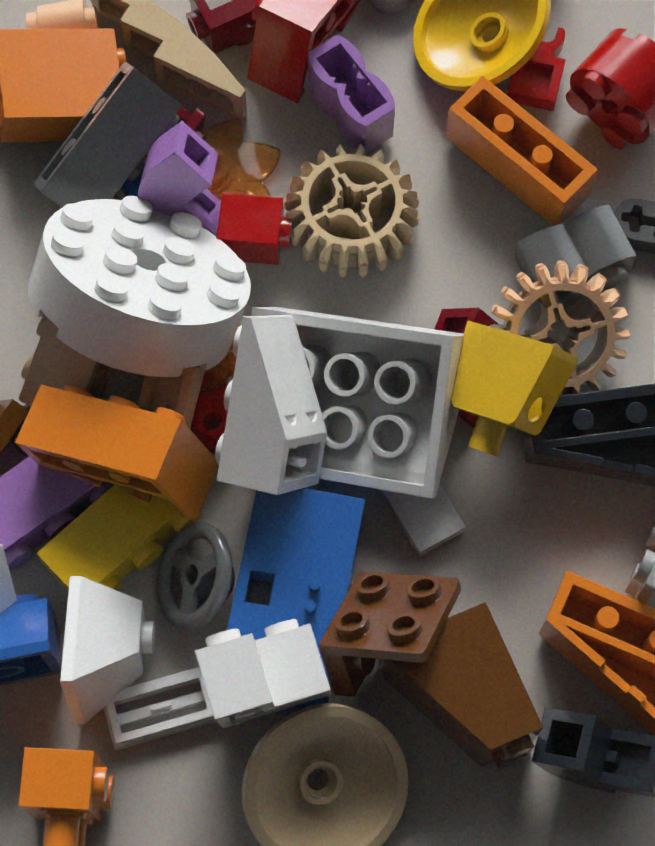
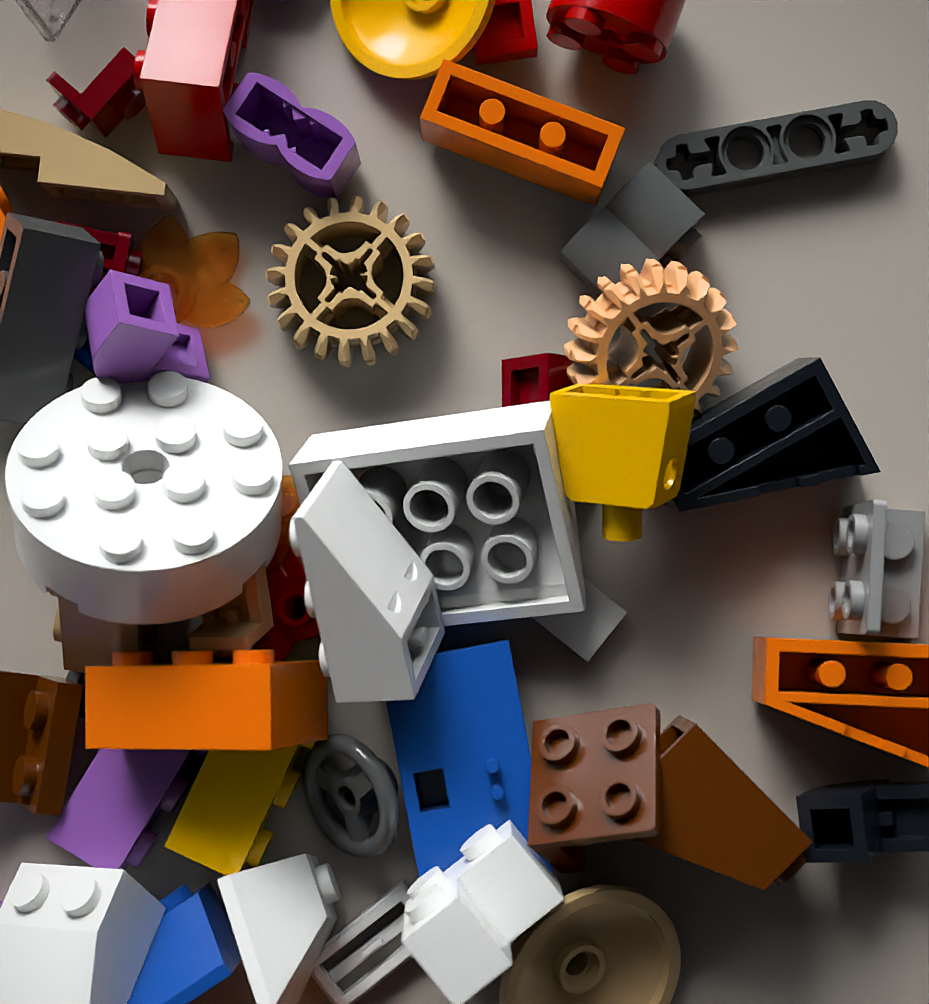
camera: 15 degrees left, 15 degrees up
(254, 227) = (245, 349): red brick -> none

